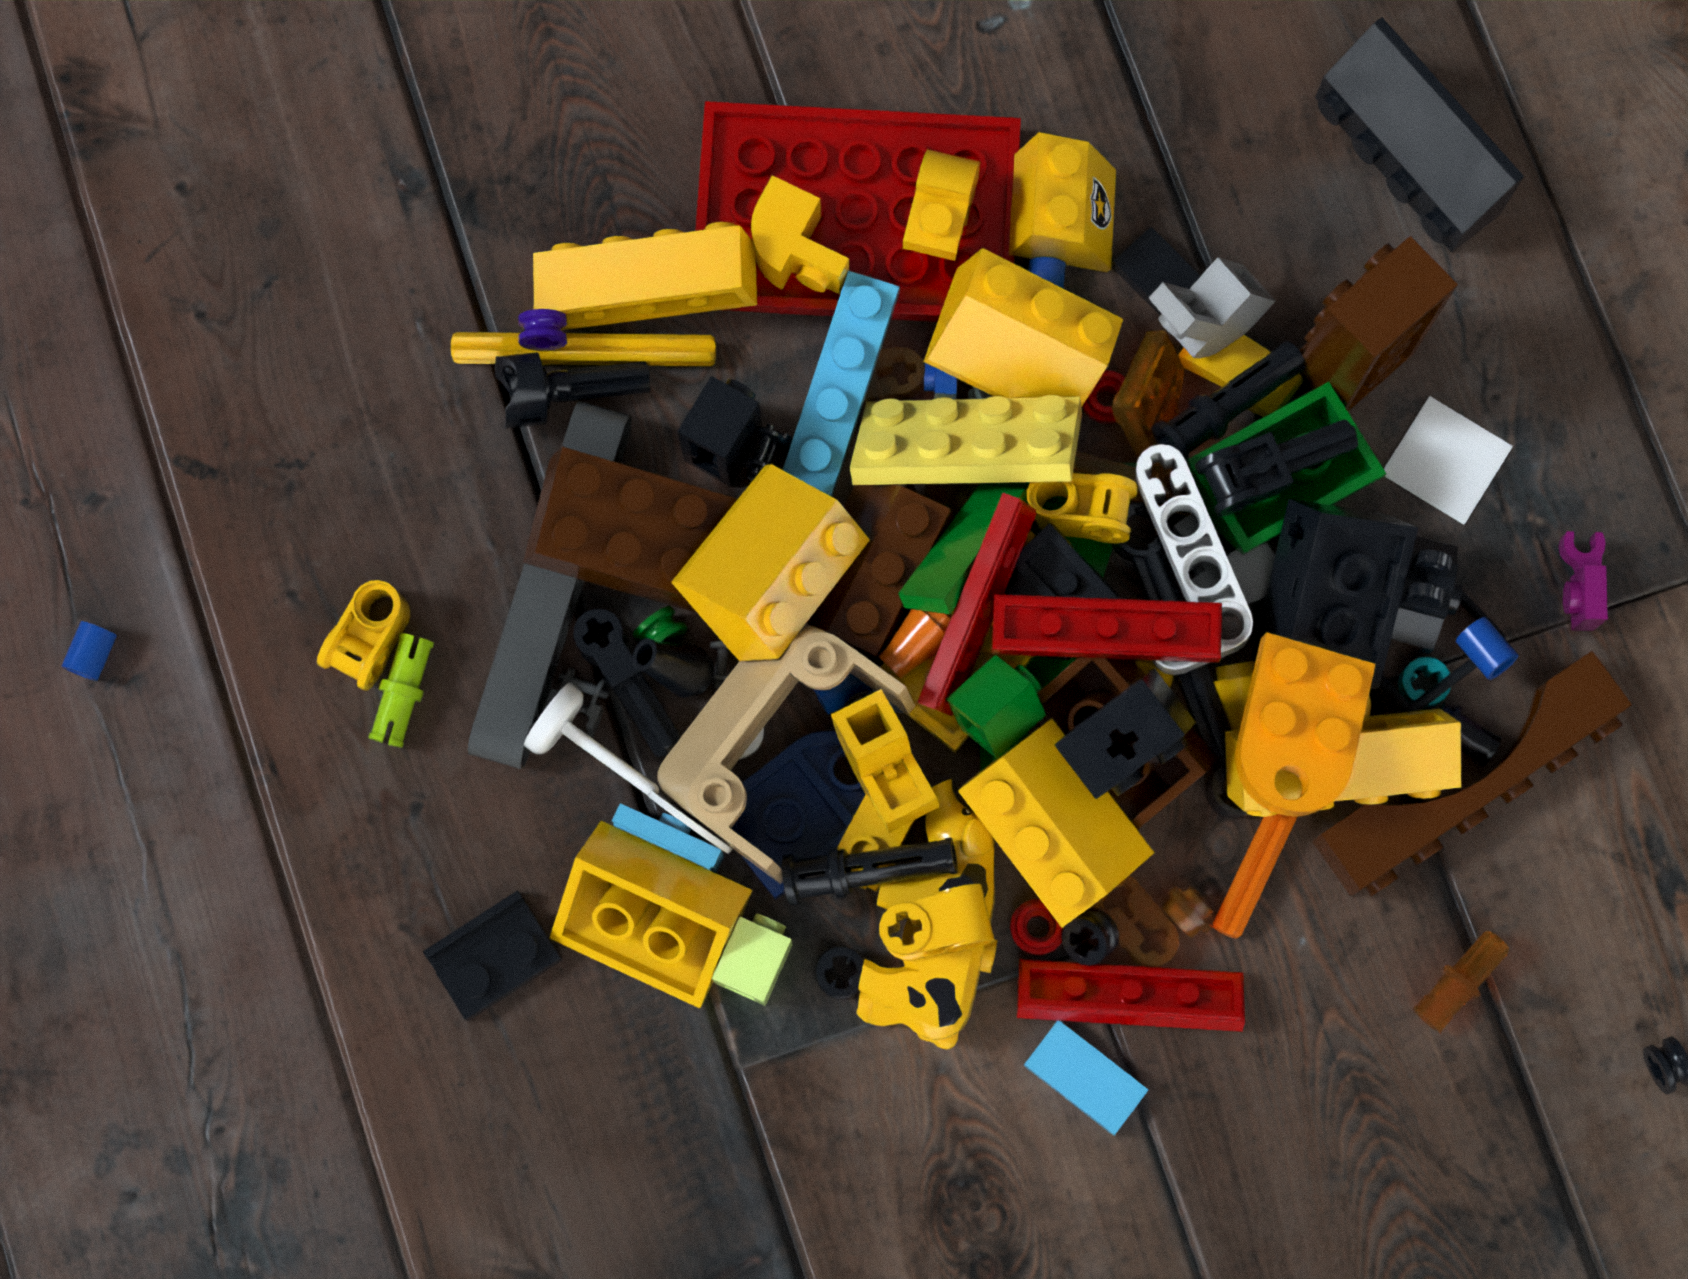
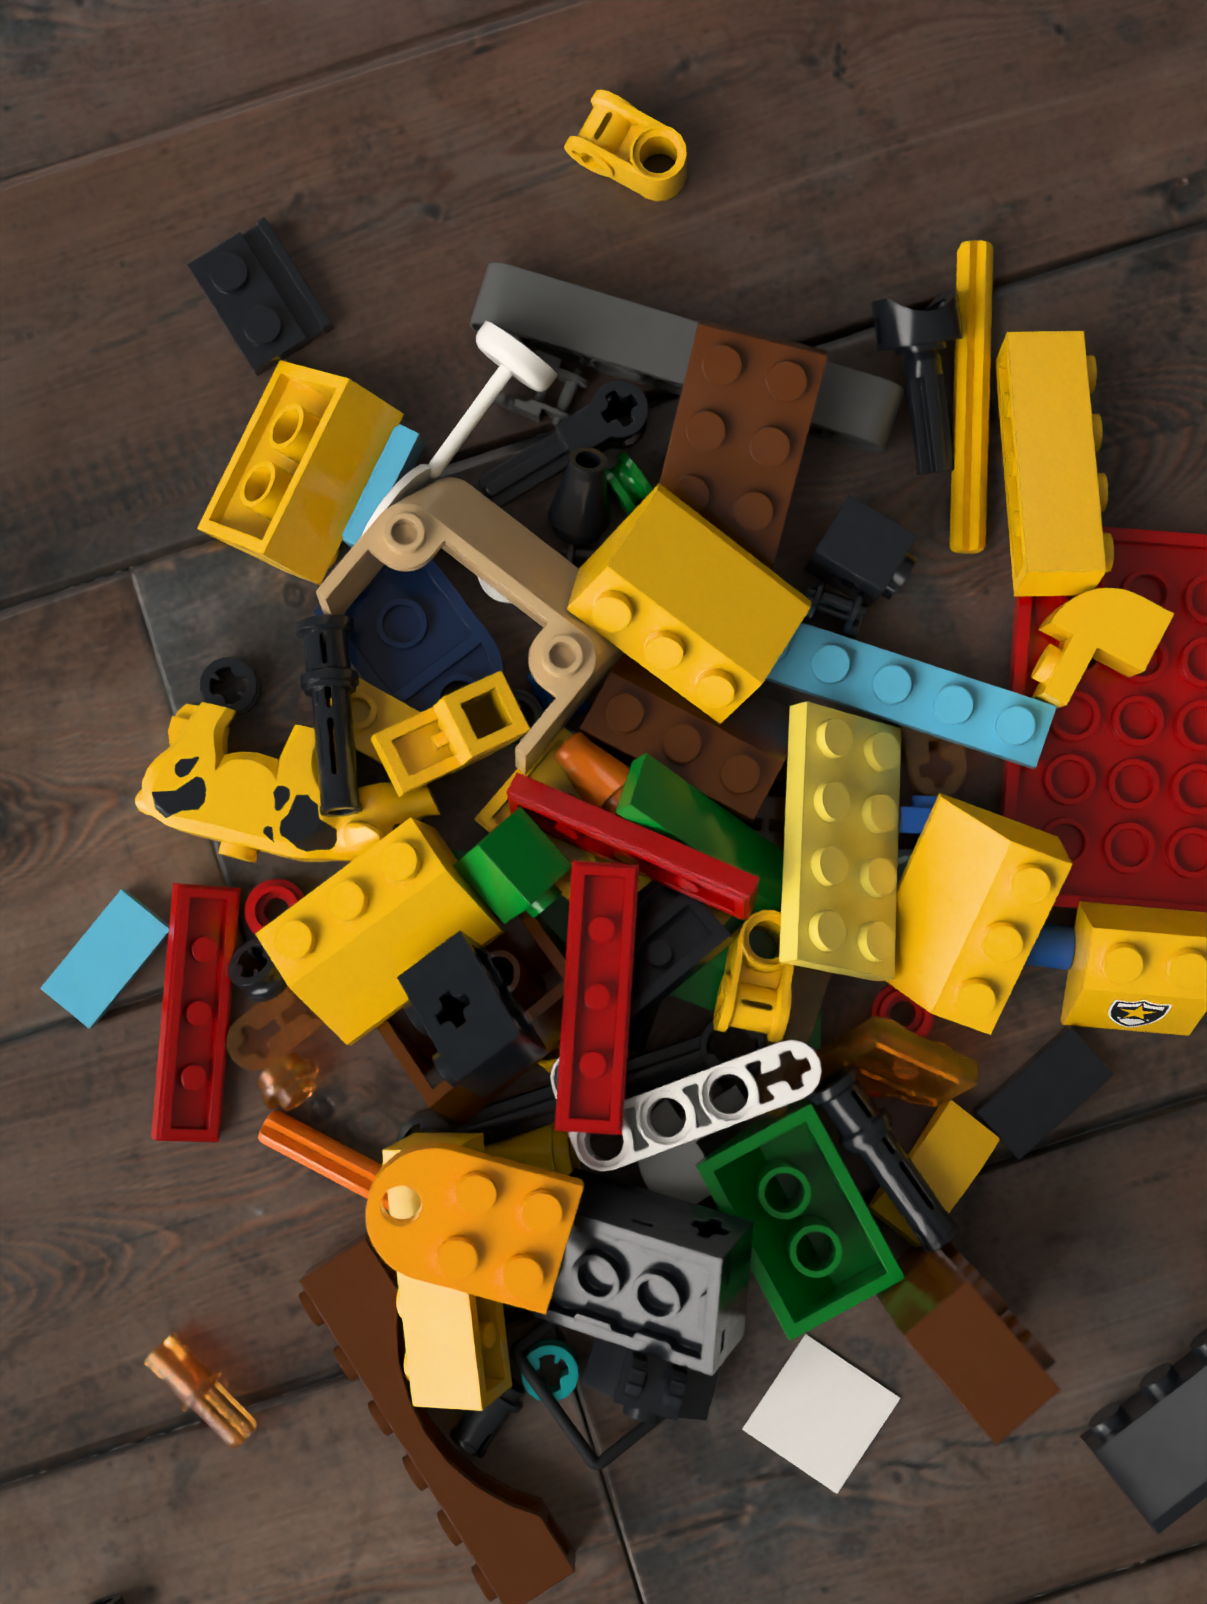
camera: 90 degrees right, 10 degrees up
(401, 690) = (564, 188): lime pin -> none
(542, 329) = (988, 343): dark purple bush -> none
(753, 958) = (244, 586): yellowish green brick -> none
(941, 204) = (1136, 818): yellow brick -> none
(949, 921) = (261, 800): yellow piece -> none
(1215, 308) = (1001, 1144): light grey brick -> none
(1263, 469) = (794, 1196): black connector -> none
(1487, 648) = (581, 1447): blue hinge -> none
(1587, 590) = (652, 1570): magenta plate -> none

